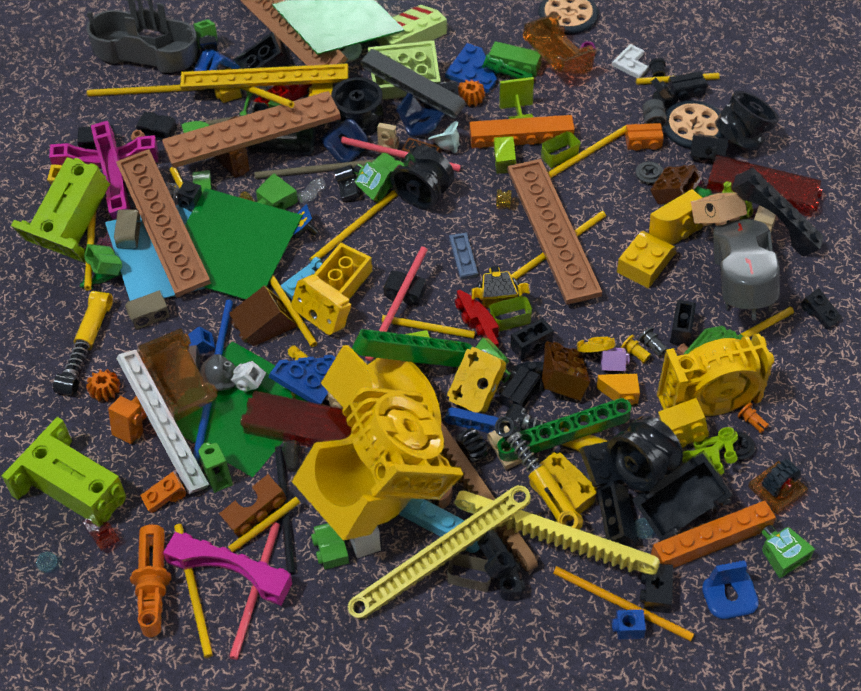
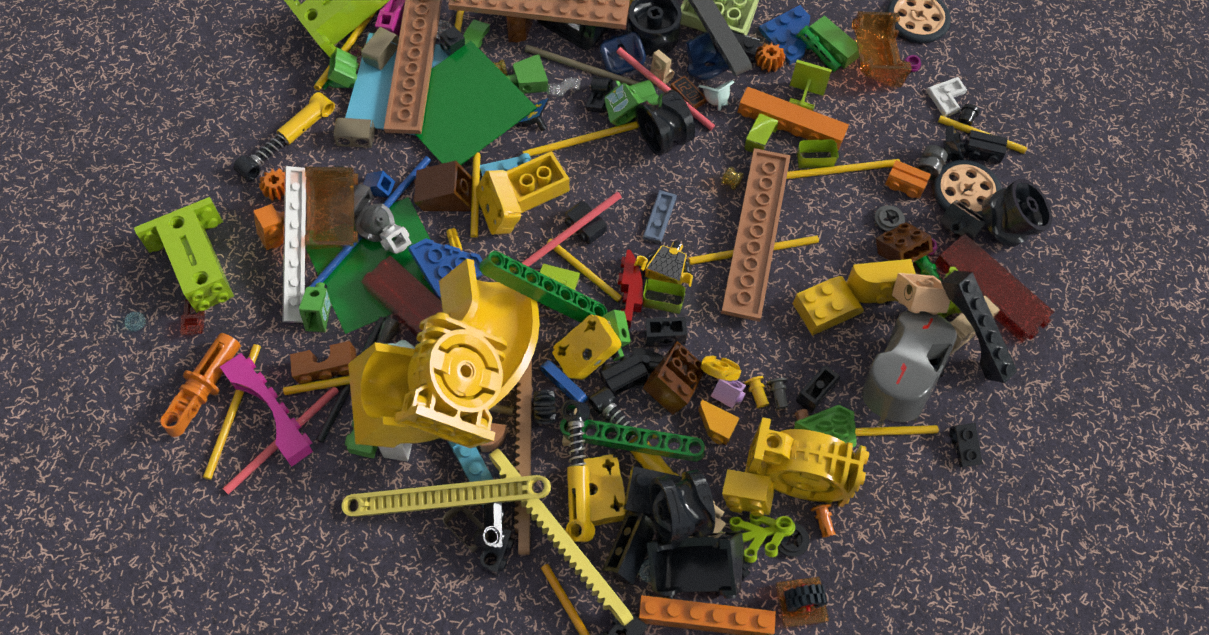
camera: 25 degrees right, 10 degrees up
(165, 490) = (263, 308): orange plate -> none

